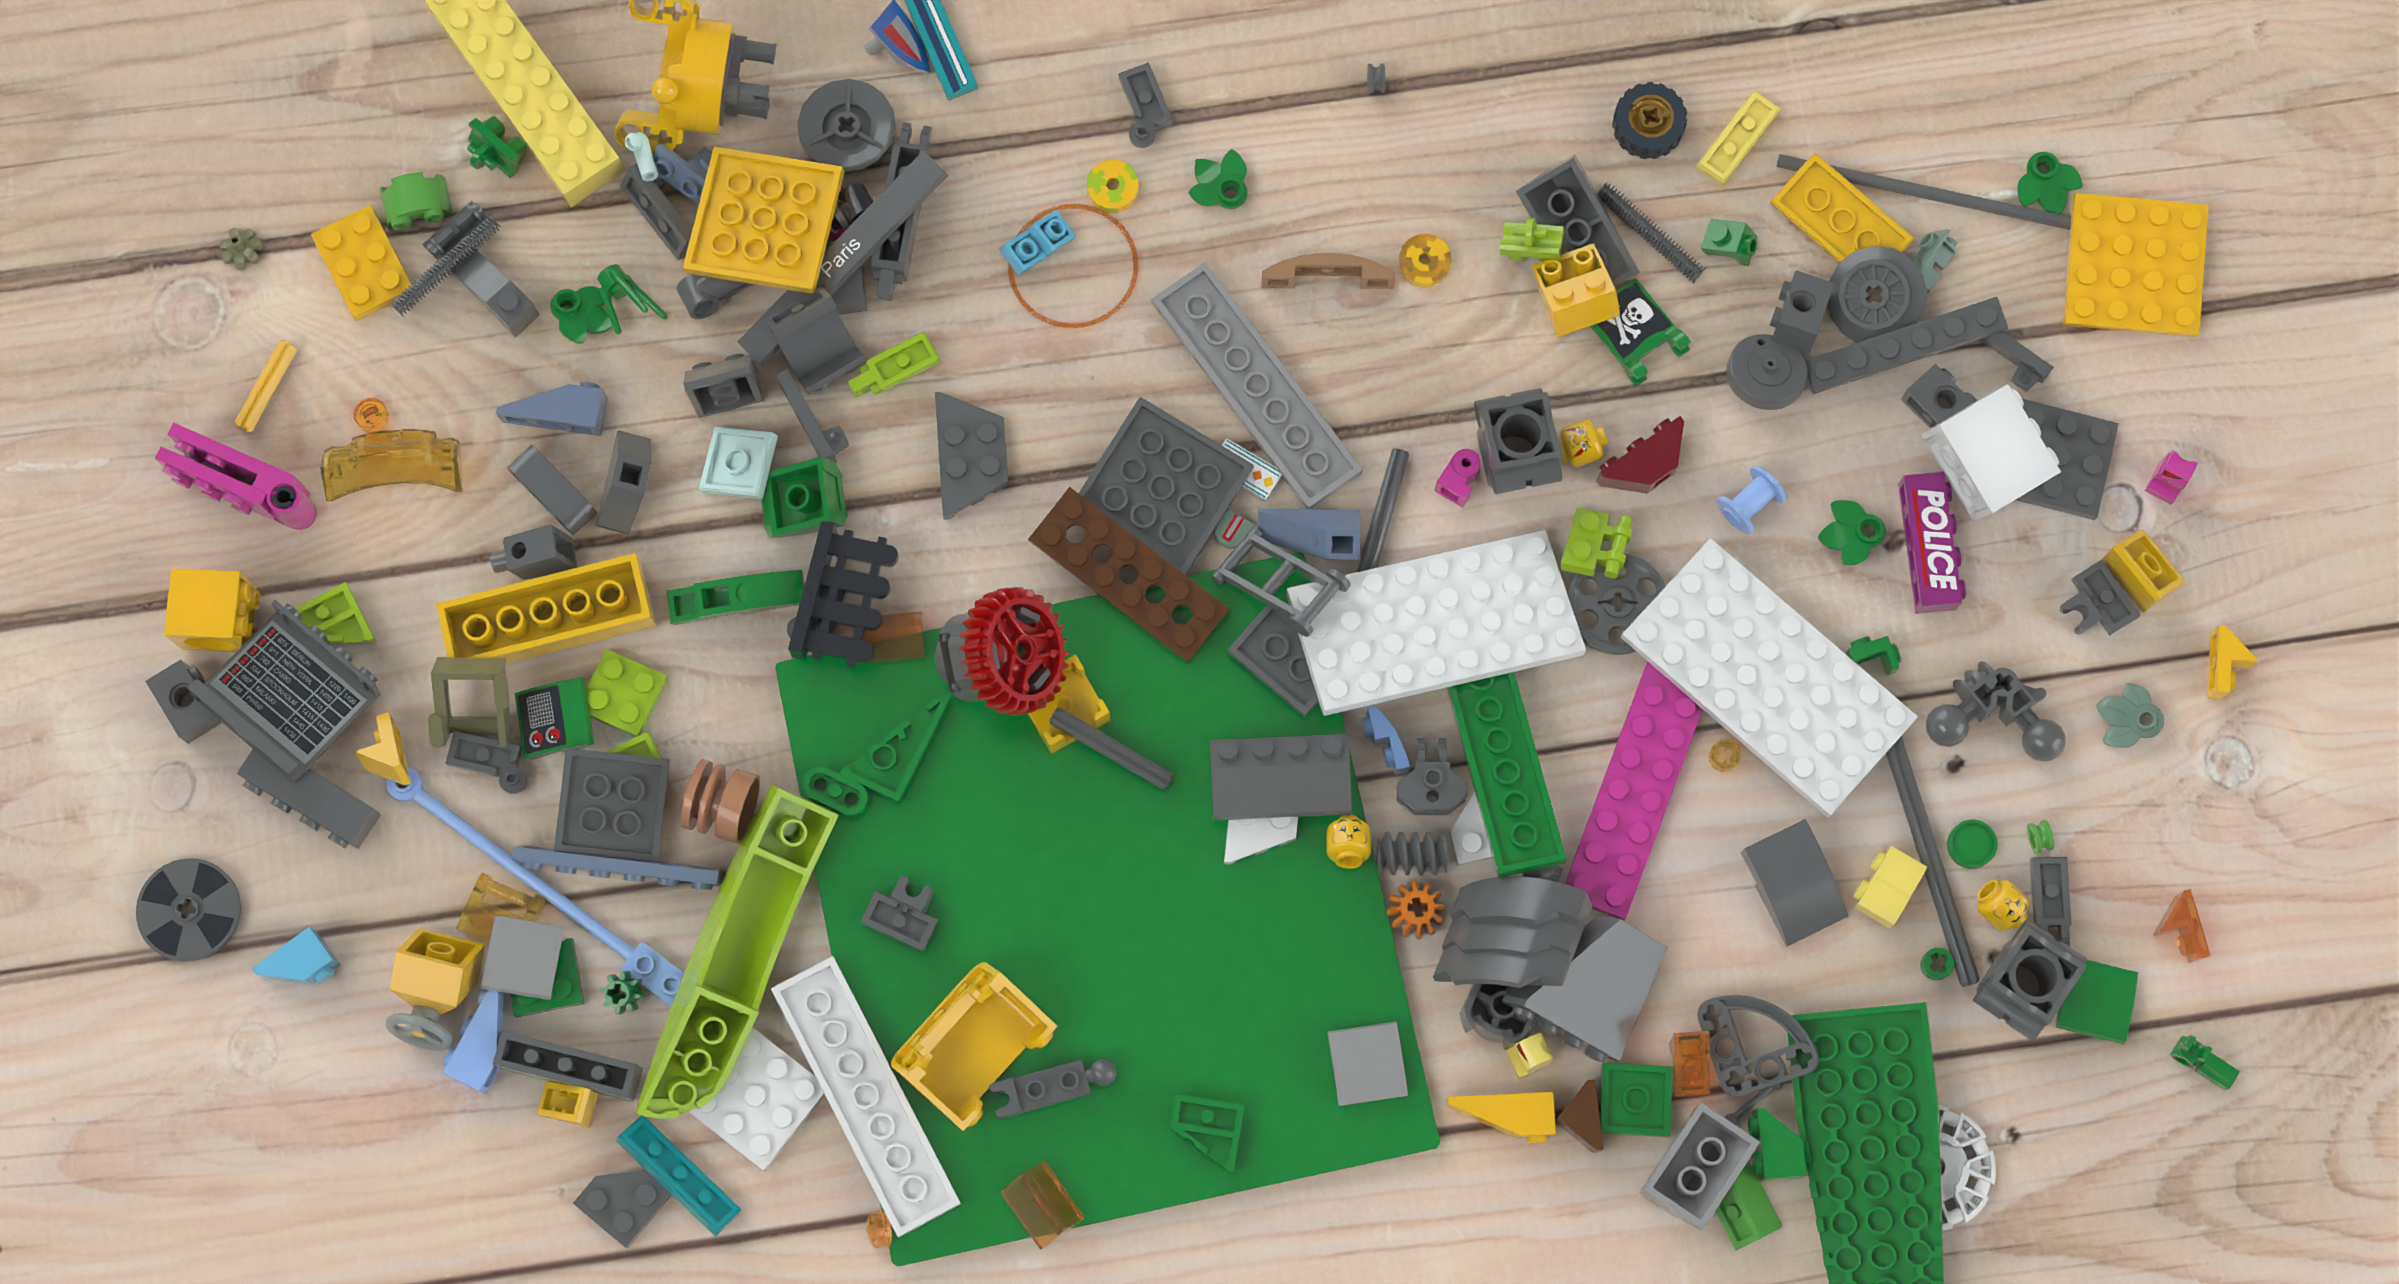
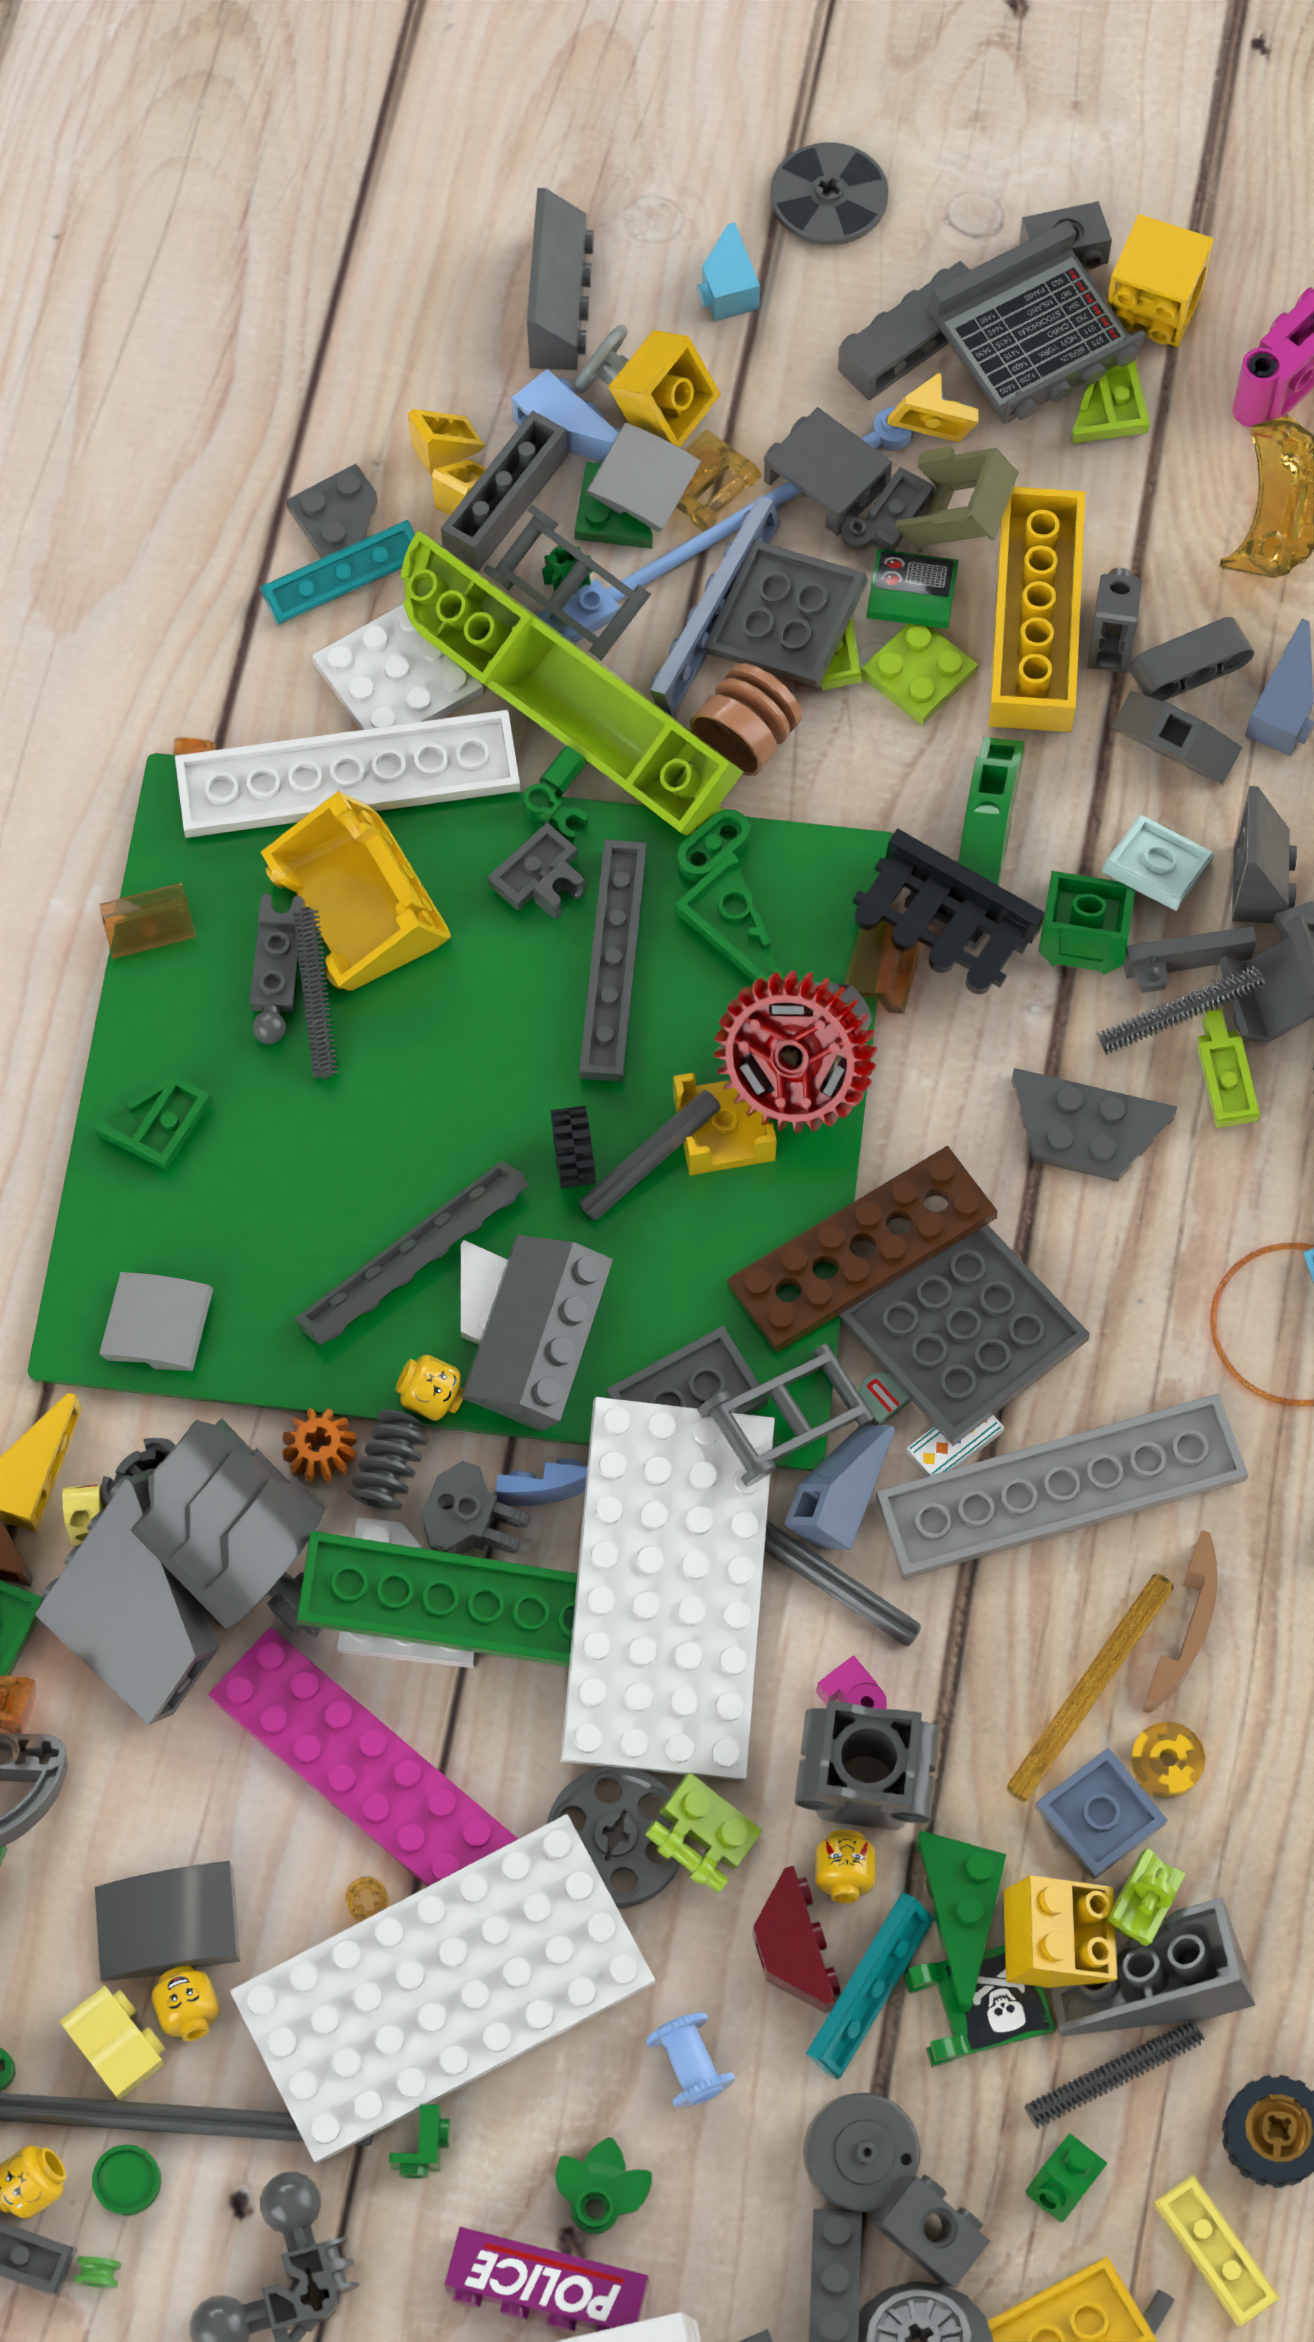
camera: 110 degrees right, 10 degrees down
(353, 1096) = (557, 284): none -> dark grey slope
(462, 819) = (829, 467): none -> dark grey panel
(527, 1138) = (442, 438): none -> yellow slope
(647, 1037) = (544, 524): none -> dark grey piece
(840, 936) = (541, 799): none -> green bar
(863, 414) = (1181, 1009): none -> dark grey axle
(957, 833) = (613, 961): none -> dark grey plate
(1064, 1043) = (313, 993): none -> dark grey axle
(1128, 802) = (573, 1146): none -> black tyre
(1248, 895) = (412, 1251): none -> dark grey plate
(1393, 324) = (1089, 1687): none -> clear yellow axle
(1480, 290) = (1101, 1813): none -> sand blue plate
(1566, 362) = (964, 1893): none -> green wing
(1656, 400) = (870, 1986): none -> teal tile
(1845, 847) = (185, 2003): none -> yellow head

